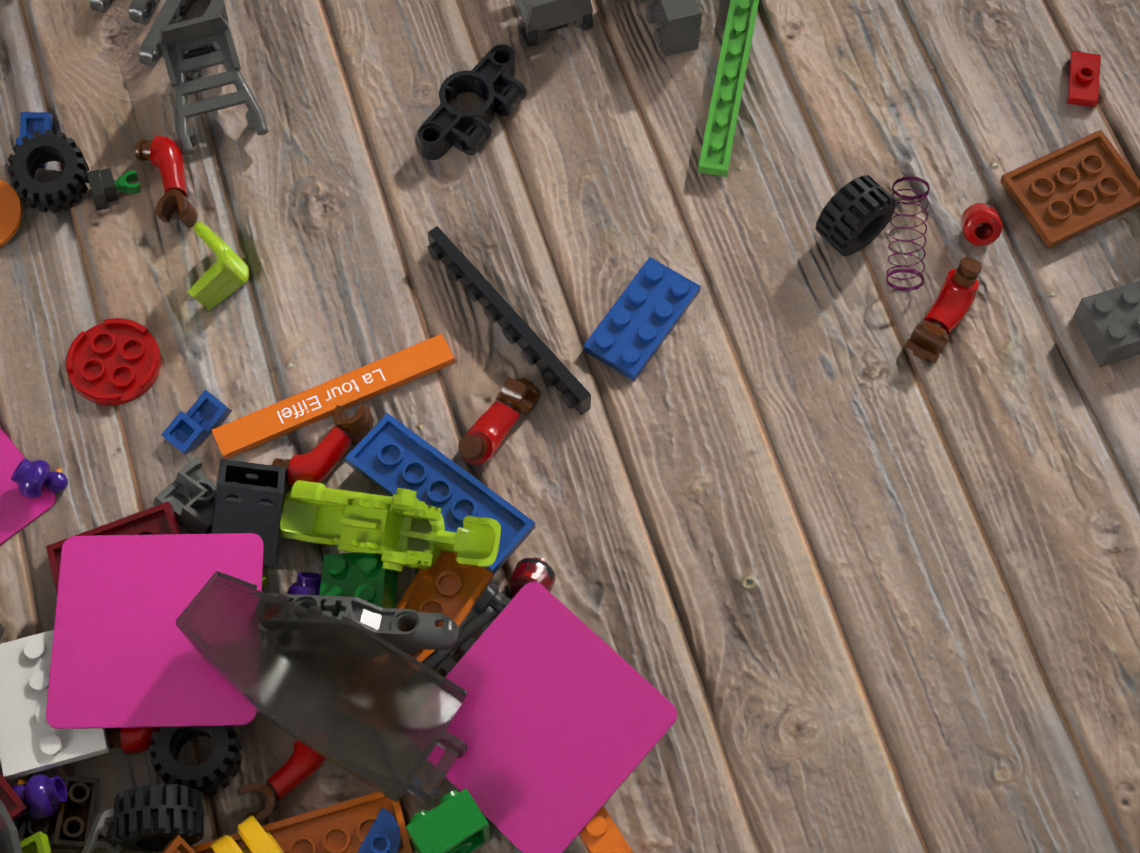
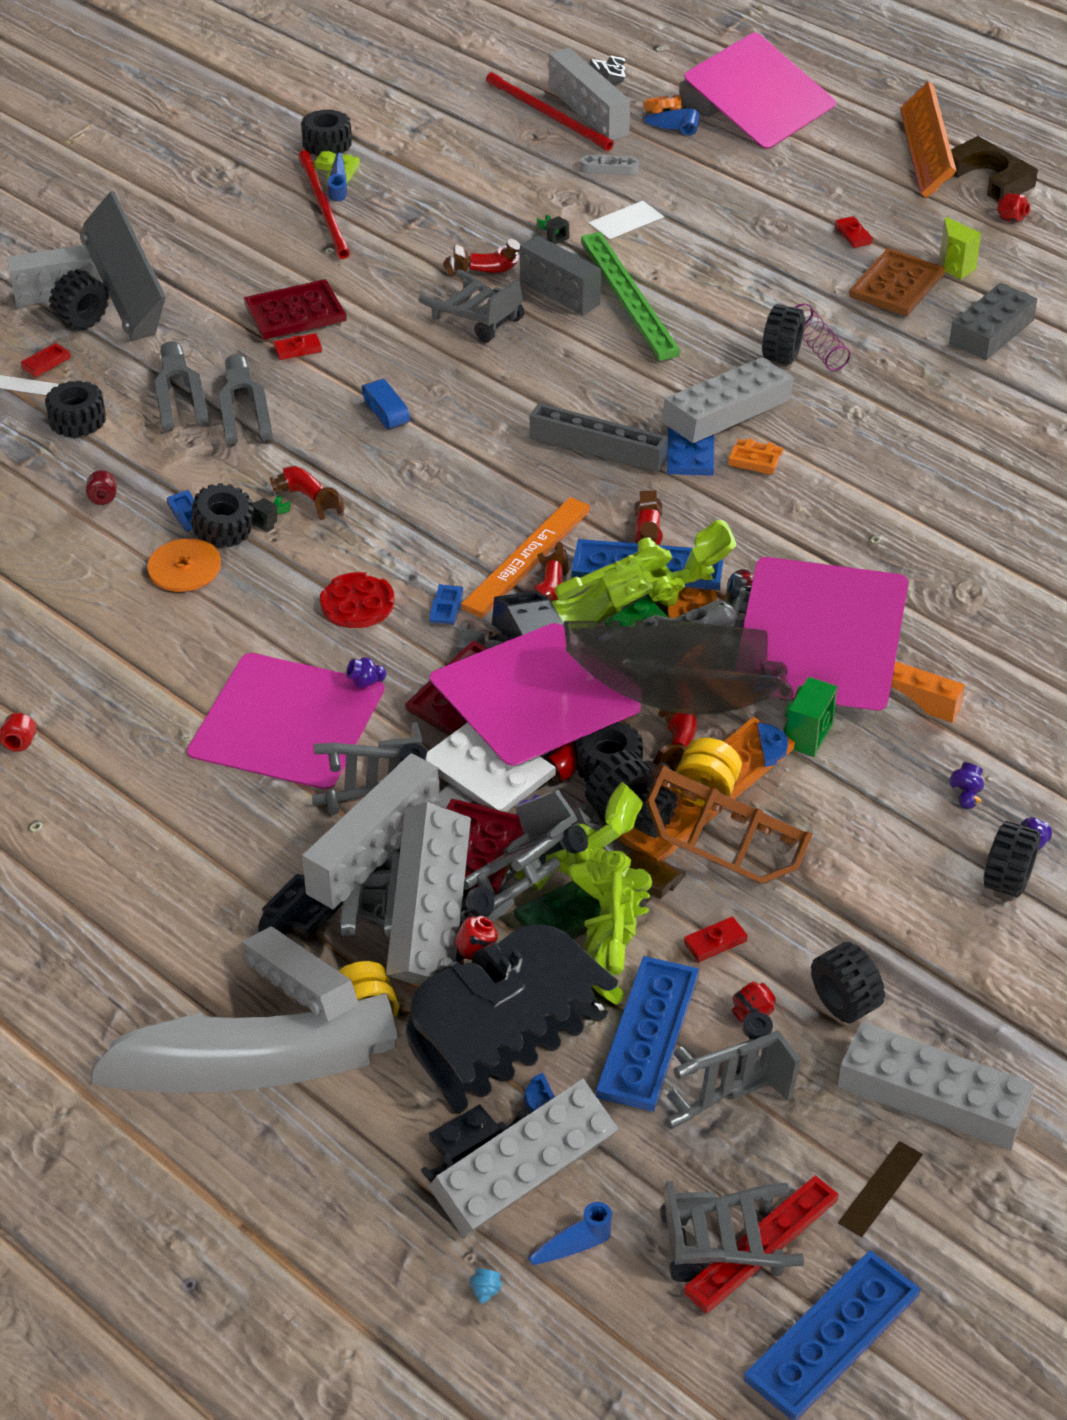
camera: 30 degrees left, 20 degrees down
(195, 37) = (279, 393): dark grey hand -> none
(223, 276) = (398, 518): lime piece -> none
(343, 88) = (385, 403): none -> blue beam
(451, 127) = (482, 393): black piece -> none
(512, 325) = (607, 472): black plate -> none
(531, 264) = (598, 437): none -> dark grey brick
(692, 386) = (755, 456): none -> orange plate
(718, 283) = (727, 399): none -> light grey brick
(948, 310) = (875, 363): piece -> none
(981, 224) = (859, 315): red head -> none

